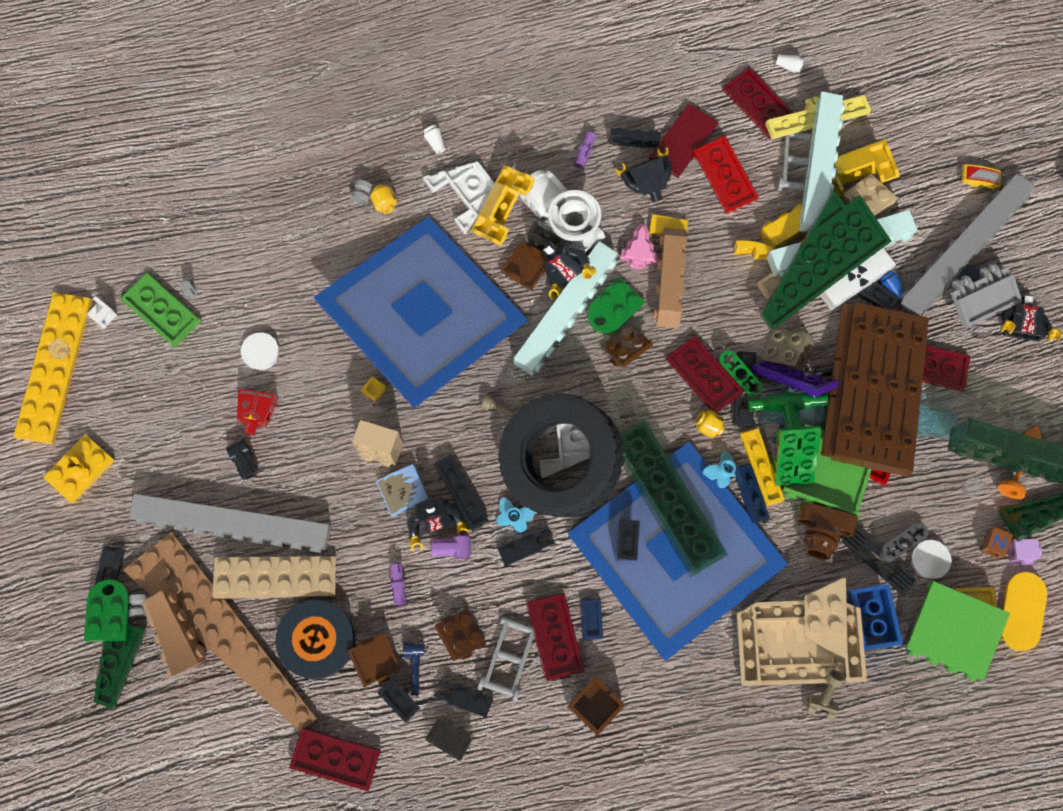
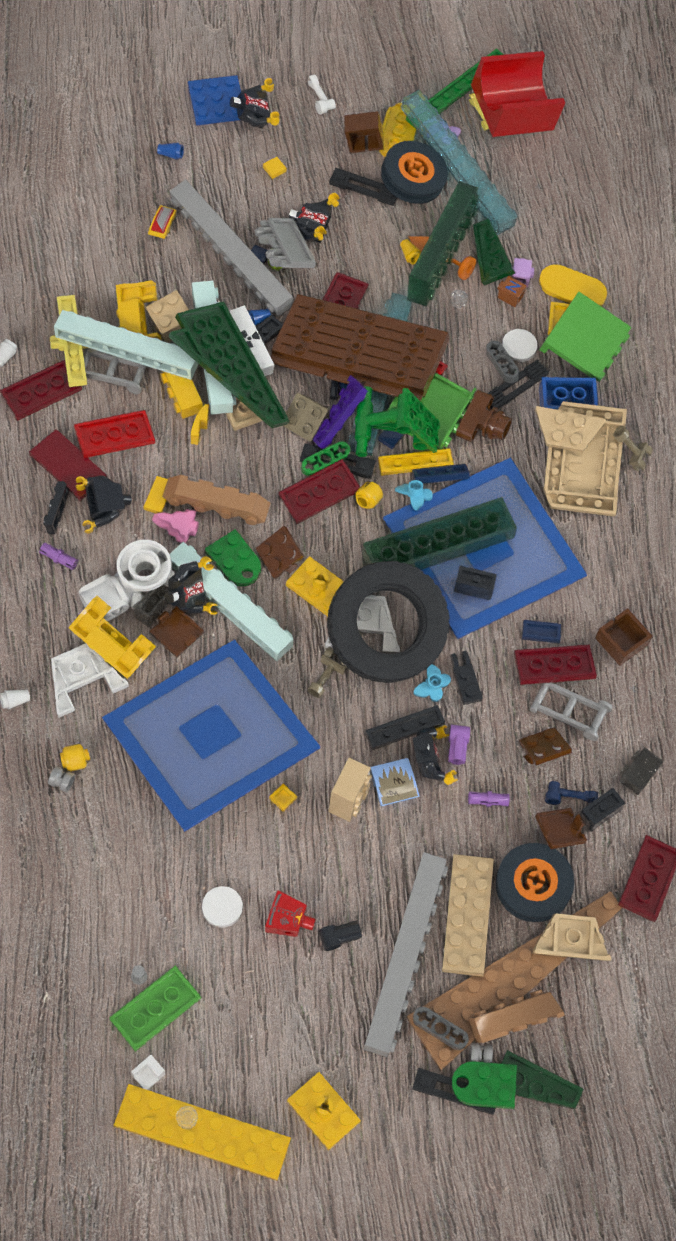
camera: 85 degrees left, 10 degrees down
(148, 565) = (438, 1019): none -> dark grey beam
(258, 682) = (573, 938): none -> tan wing
(466, 699) = (604, 752): black hinge -> none
(603, 385) = (314, 584): none -> yellow plate
(1019, 425) = (410, 251): none -> yellow cone

